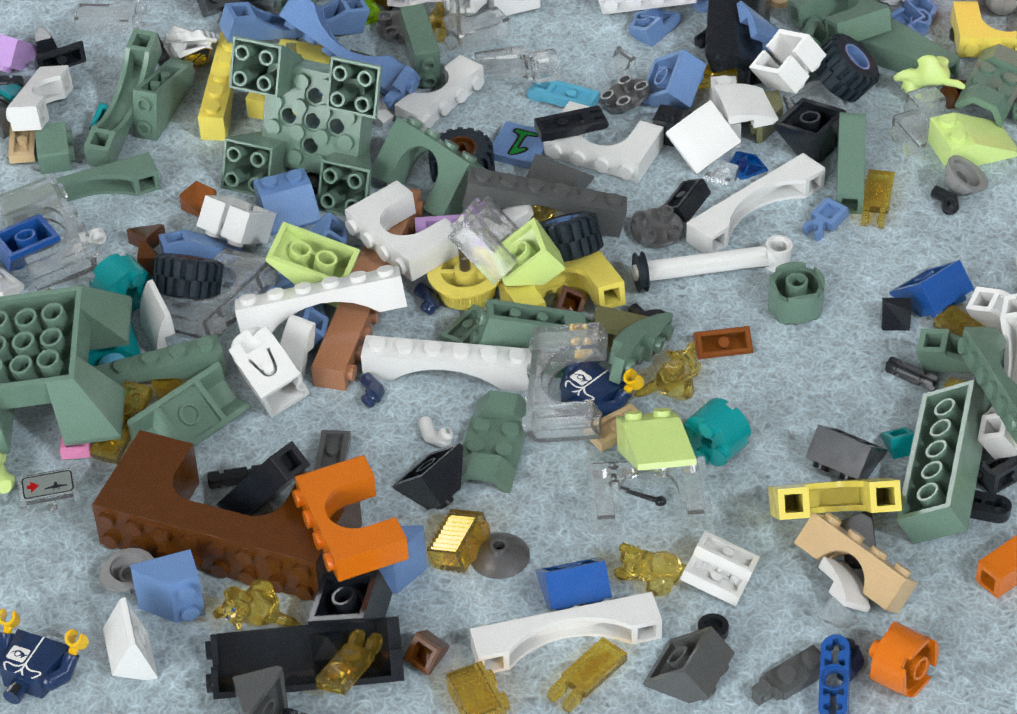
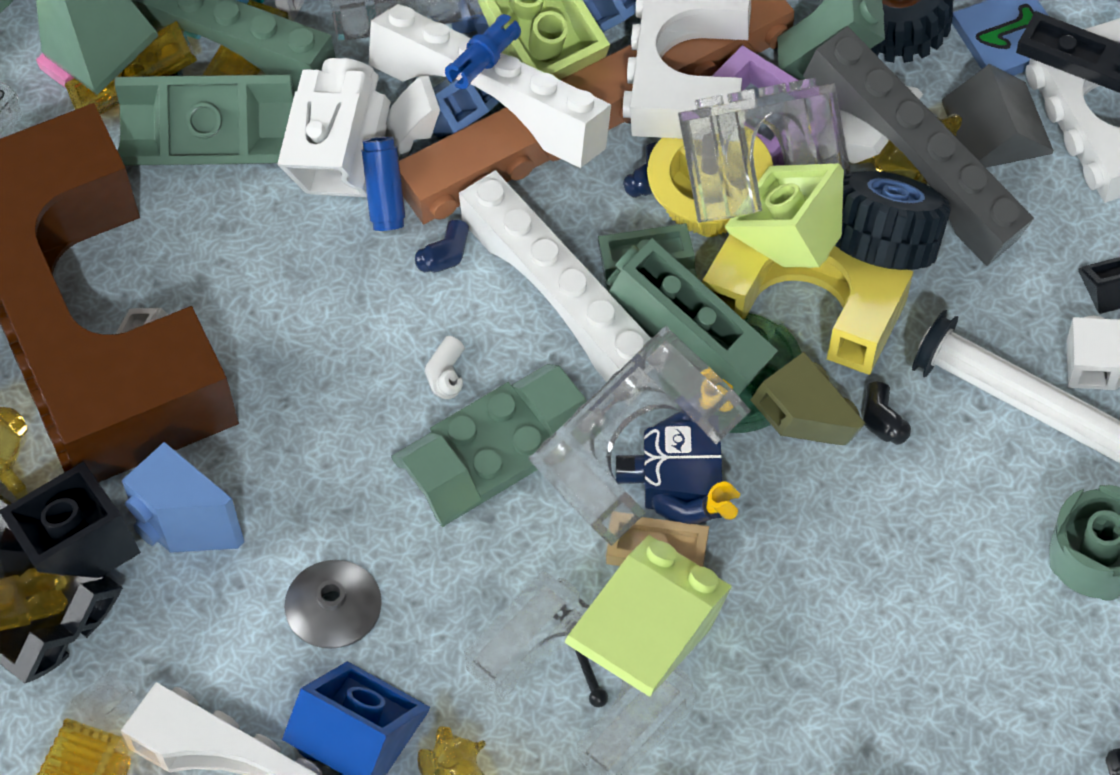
camera: 45 degrees right, 15 degrees up
(230, 477) = (177, 243): black axle -> none
(266, 481) = (152, 286): black slope -> none
(315, 280) = (482, 51): none -> blue pin
(316, 378) = (383, 183): none -> blue piece
(332, 448) = (292, 309): dark grey hinge -> none
(347, 550) = (148, 361): orange arch -> none
(425, 651) = (93, 664): reddish brown slope -> none
(434, 478) = (364, 433): black slope -> none
(458, 540) = (295, 544): clear yellow brick -> none
(569, 299) = (805, 315): reddish brown slope -> none
(639, 343) = (810, 446): sand green slope -> none
(657, 227) = (1044, 290): flat silver dish -> none
(676, 375) = (807, 534): clear yellow animal -> none
(717, 432) = (748, 667): teal brick -> none
(723, 342) = (935, 534): dark orange slope -> none

